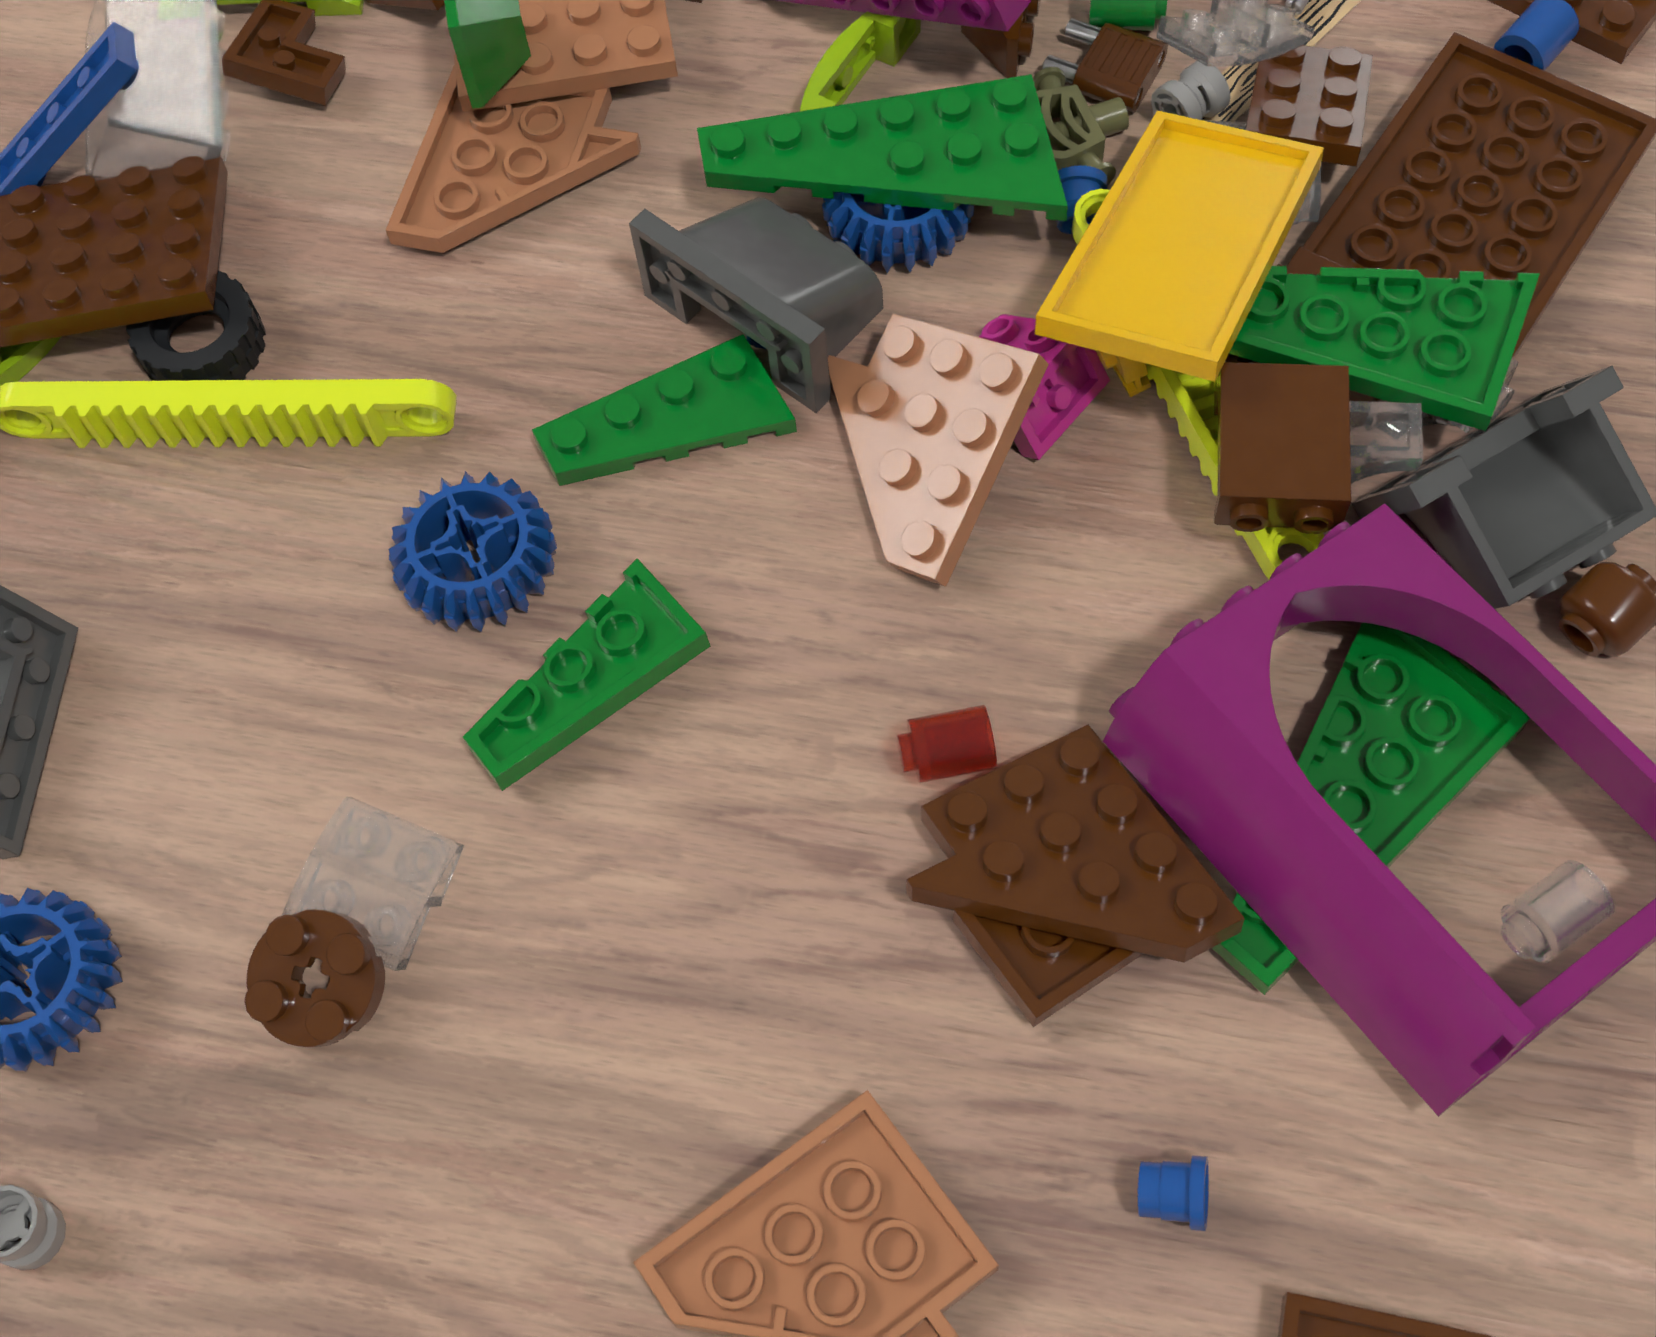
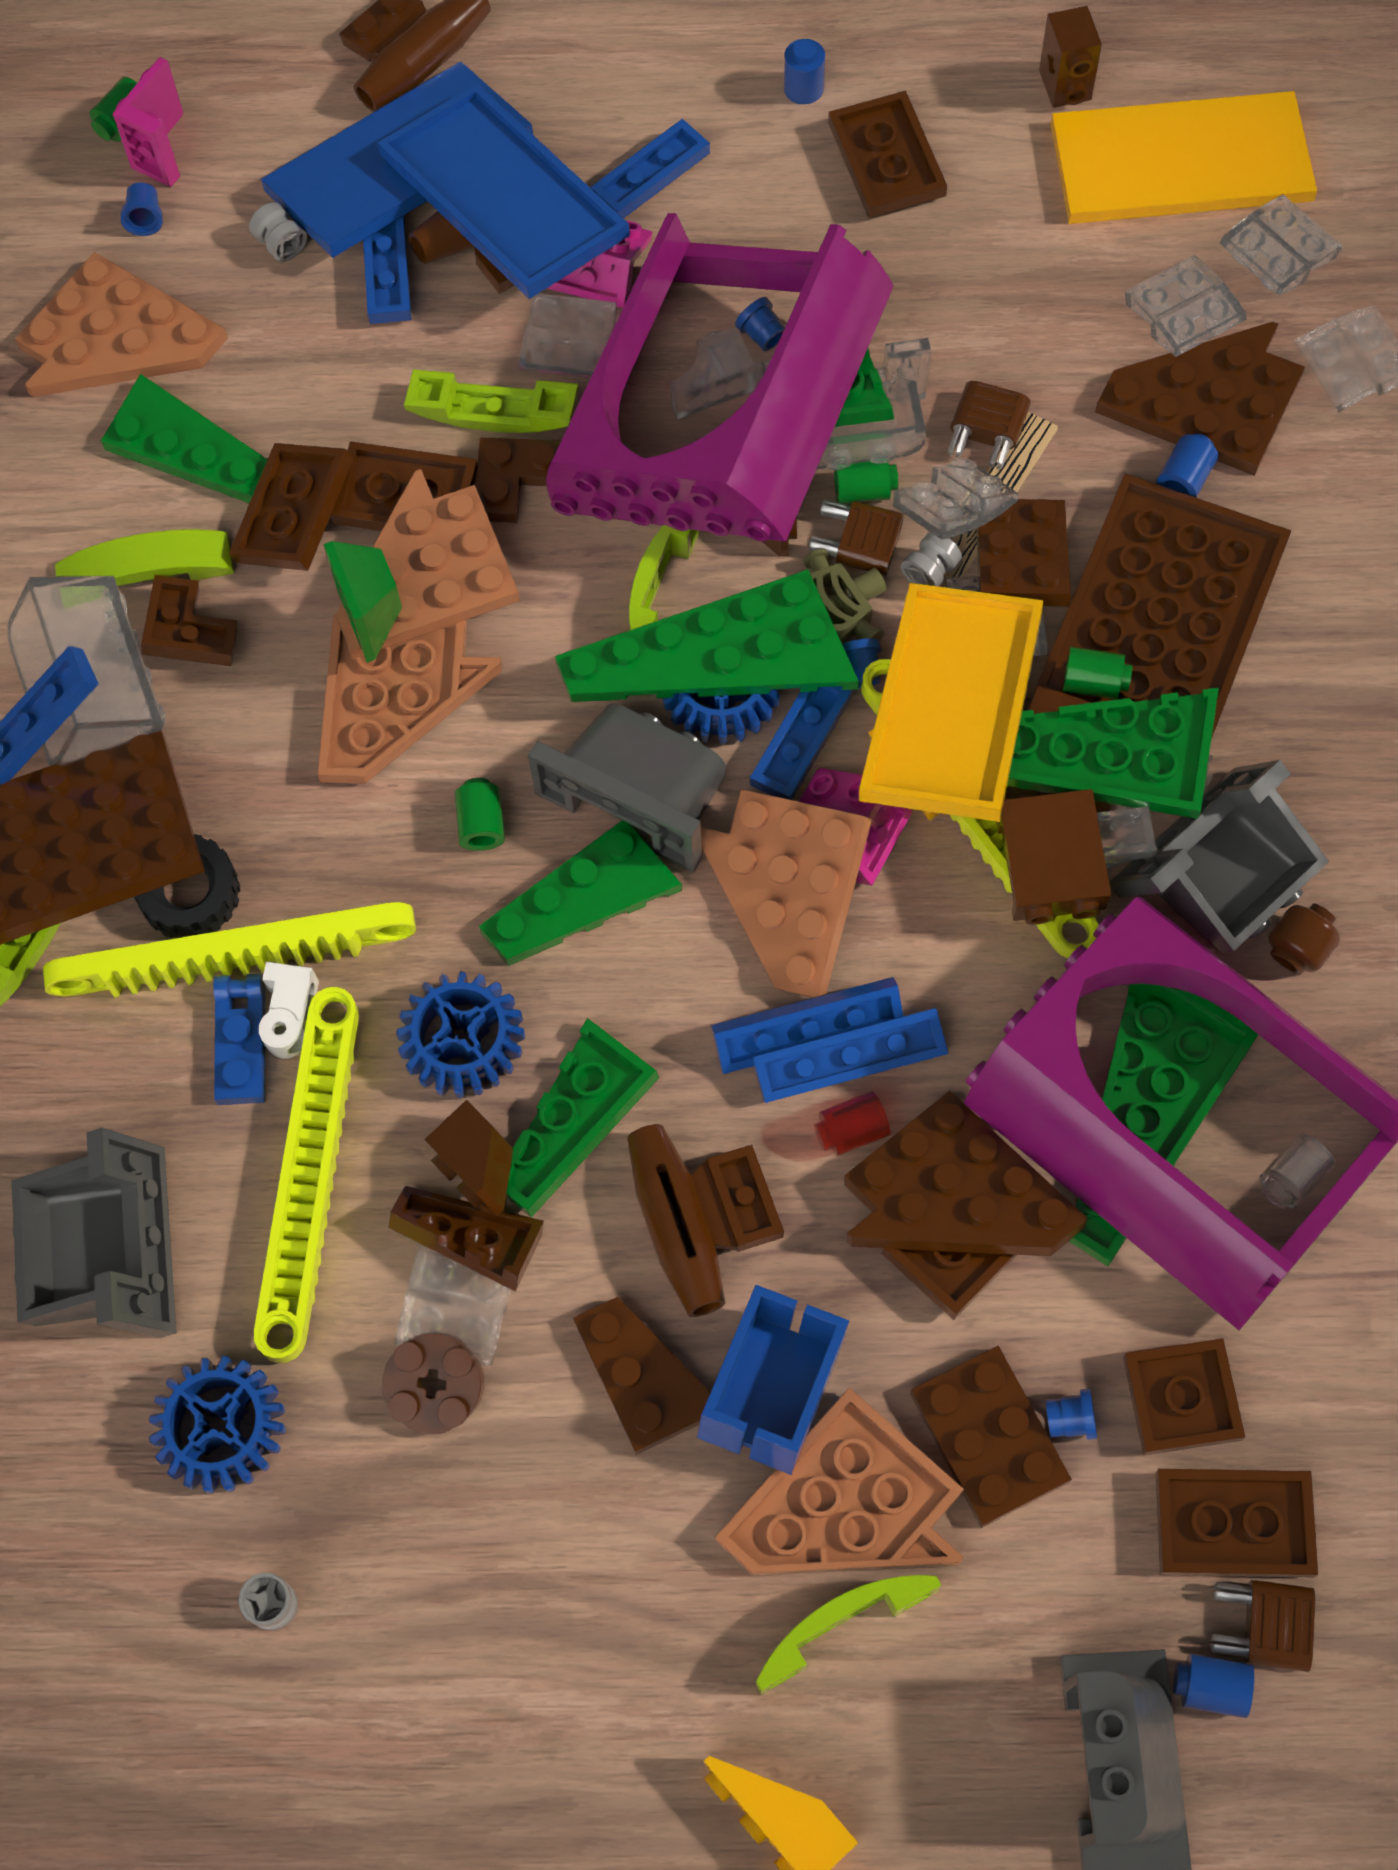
camera: 15 degrees left, 5 degrees up
(206, 518) = (238, 1046): none -> blue plate
(232, 695) = (307, 1175): none -> neon yellow gear
(273, 488) = (285, 1022): none -> white leg
(414, 796) = (470, 1236): none -> reddish brown wing
(445, 697) = (474, 1152): none -> reddish brown slope
(566, 304) = (479, 815): none -> green brick
(594, 1028) = (641, 1376): none -> reddish brown wing
(708, 822) = (695, 1213): none -> reddish brown plate
(758, 1057) = (772, 1380): none -> blue piece
(918, 611) = (804, 1022): none -> blue plate
(964, 657) = (849, 1055): none -> blue plate
(987, 271) = (799, 741): none -> blue plate
(1054, 1200) = (990, 1436): none -> reddish brown plate
(1342, 1196) = (1183, 1396): none -> reddish brown plate
(1378, 240) = (1096, 673): none -> green brick

